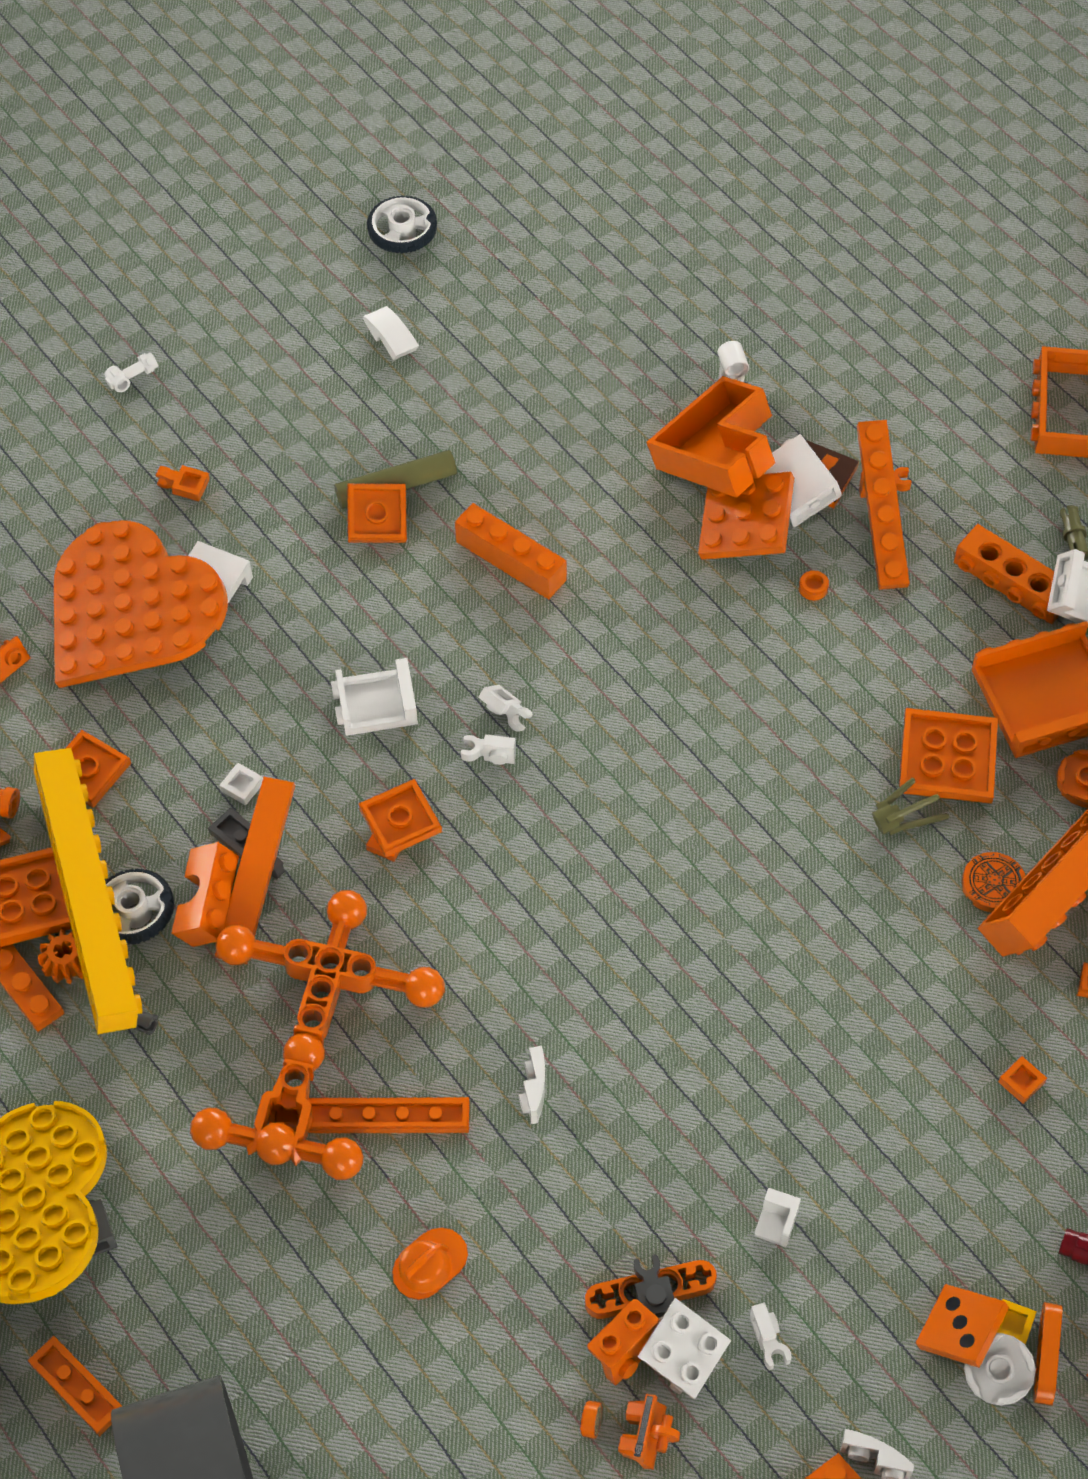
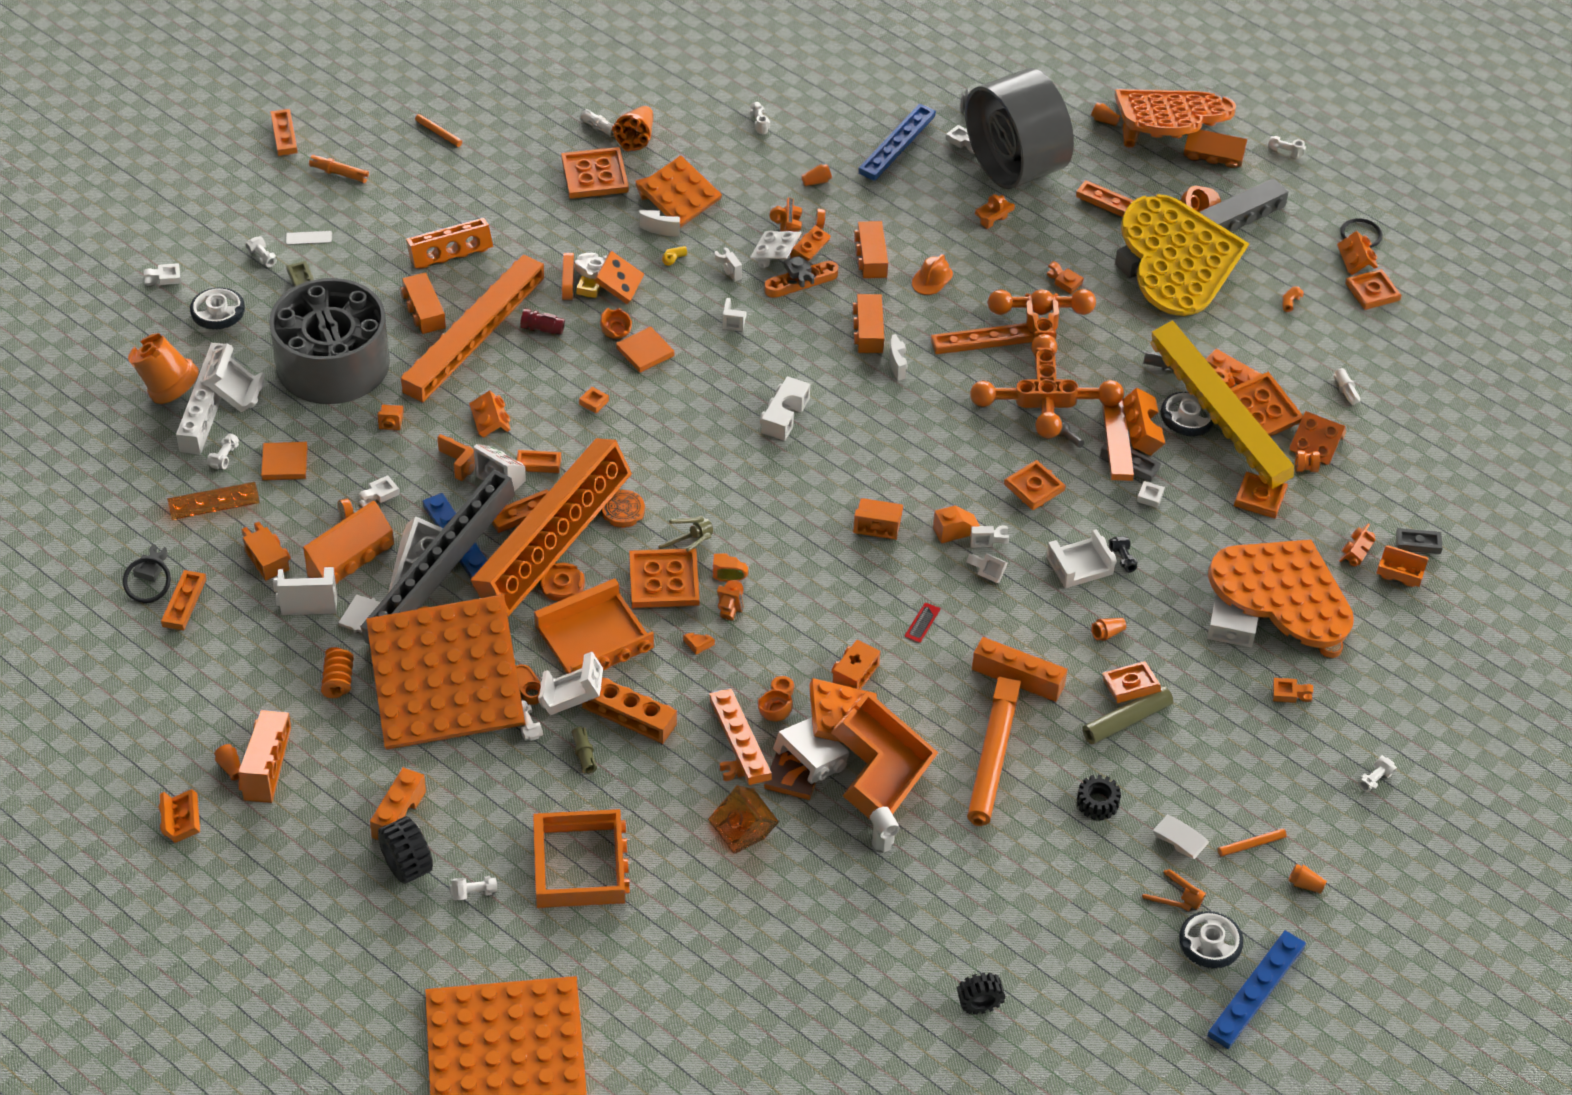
camera: 165 degrees right, 10 degrees down
(211, 1216) = (1065, 279): none -> orange plate
(270, 271) = (1306, 879): none -> orange cone
(282, 1380) = (995, 209): none -> orange hips
(310, 323) = (1252, 842): none -> orange bar
(315, 713) = (1122, 545): none -> black bar
(320, 924) = (1065, 432): none -> dark grey bar
(371, 182) = (1256, 989): none -> blue plate
(376, 595) = (1107, 628): none -> orange cone
(406, 271) = (1192, 896): none -> orange plant
(467, 402) = (1103, 787): none -> black tyre
(519, 1328) = (871, 249): none -> orange brick
(528, 775) = (953, 523): none -> orange slope
(542, 511) = (993, 751): none -> orange brick
(563, 1162) = (868, 323): none -> orange brick
(611, 652) = (922, 622): none -> sticker
(635, 800) = (878, 518): none -> orange bracket
(669, 184) = (981, 993): none -> black tyre
(716, 587) = (856, 665): none -> orange brick
(717, 1036) = (789, 396): none -> white arch
(830, 547) = (775, 705): none -> orange hair
(857, 754) = (728, 568): none -> orange rock
(863, 1383) = (672, 254): none -> yellow arm
(866, 689) = (730, 599): none -> orange hips
(903, 421) = (743, 819): none -> clear orange slope
(912, 663) = (697, 642): none -> orange tile
(930, 1177) = (645, 349): none -> orange tile
(977, 1223) = (615, 323): none -> orange hair

